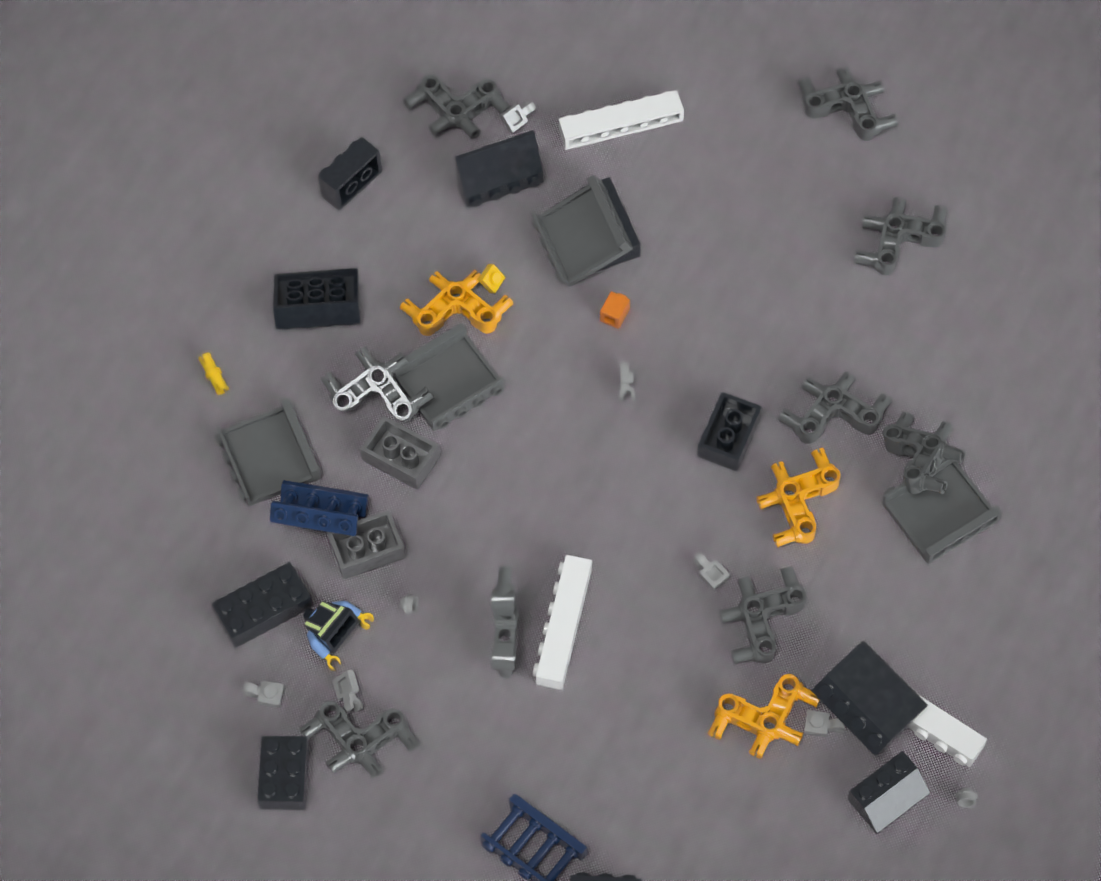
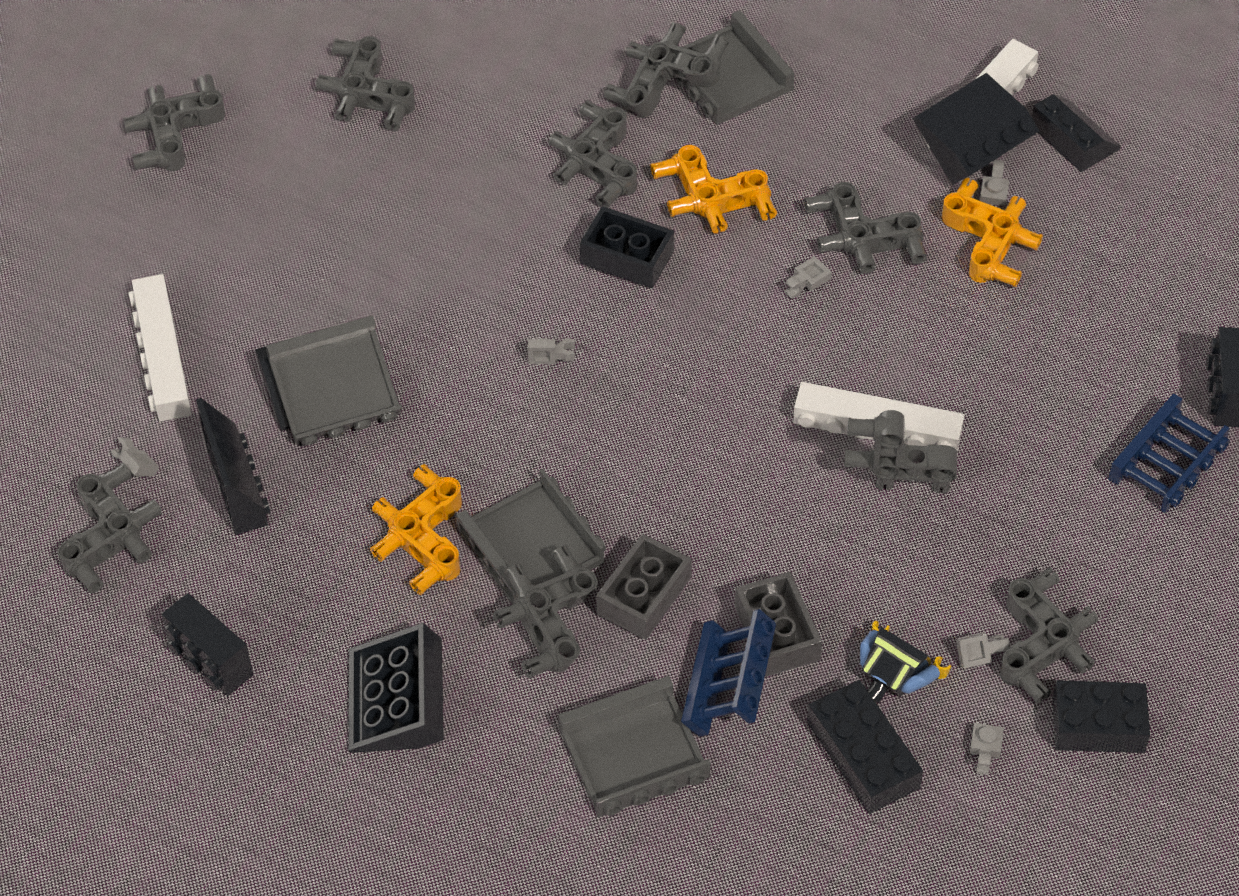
camera: 90 degrees left, 10 degrees down
(213, 373) = (506, 819): yellow pin -> none
(409, 603) = (856, 582): light grey plate -> none
(491, 278) = (386, 488): yellow plate -> none
(615, 309) = (445, 359): orange brick -> none
(966, 798) = (1074, 68): light grey plate -> none

